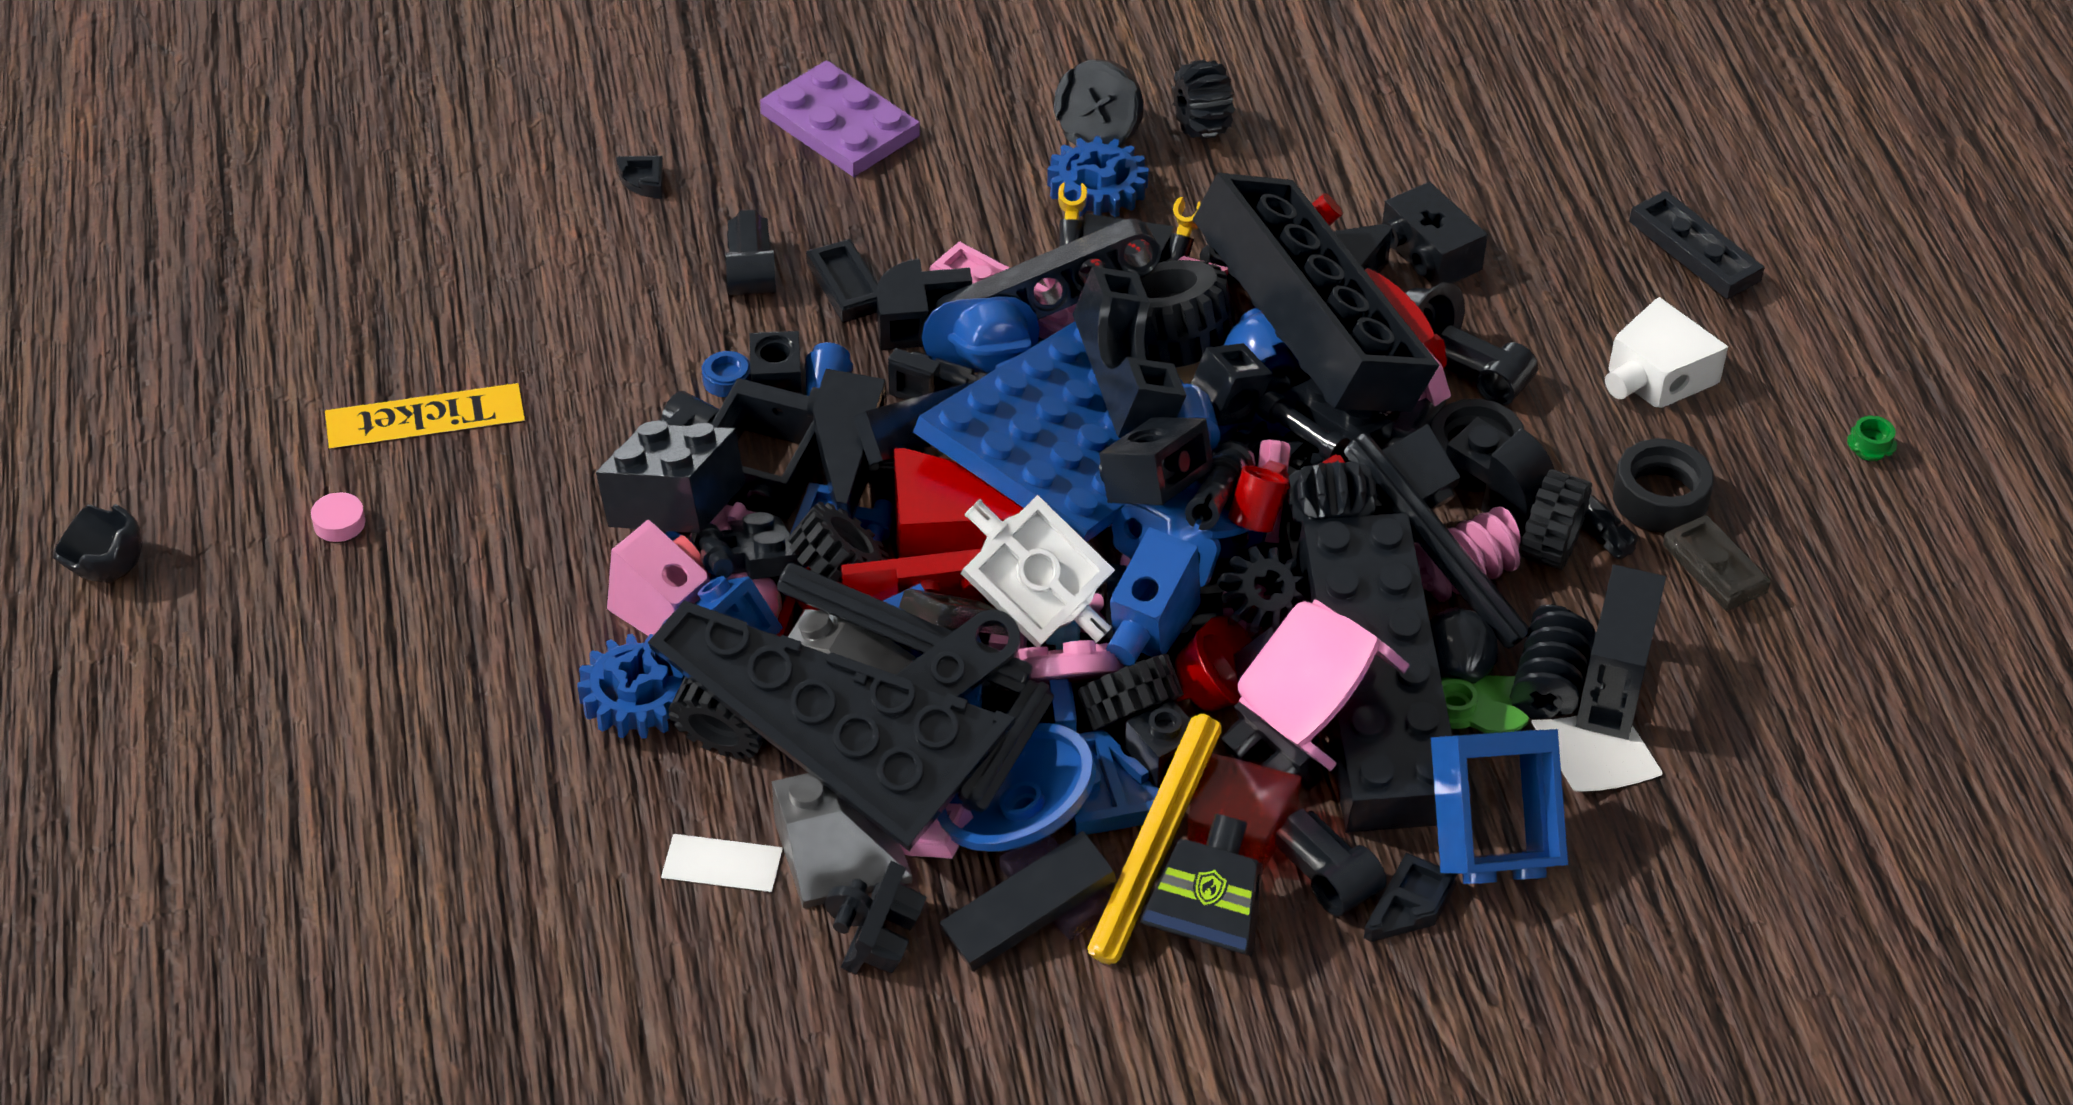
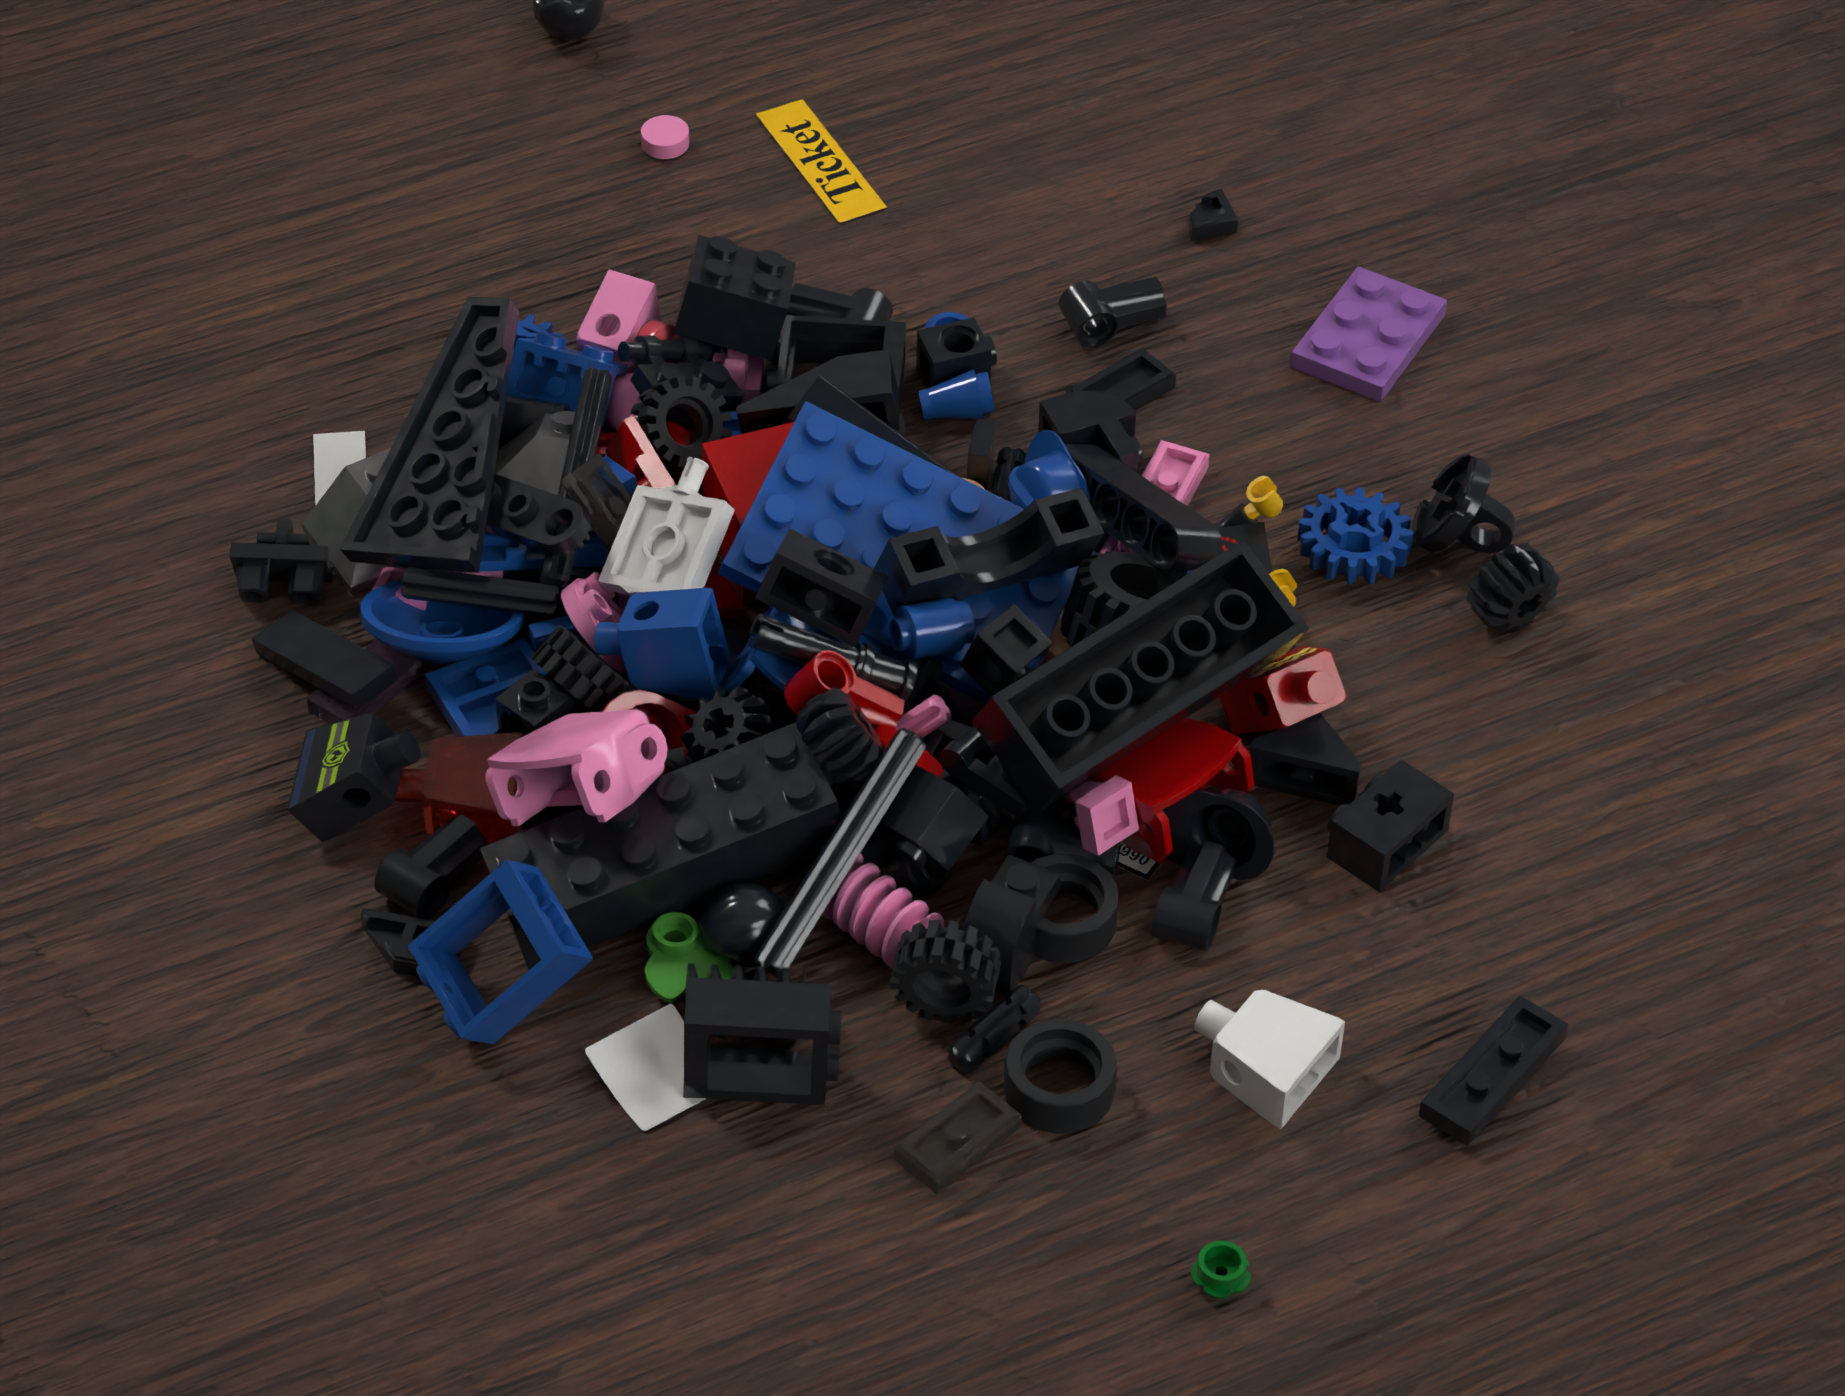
camera: 75 degrees right, 0 degrees up
(1154, 839) = (427, 720): yellow axle -> none

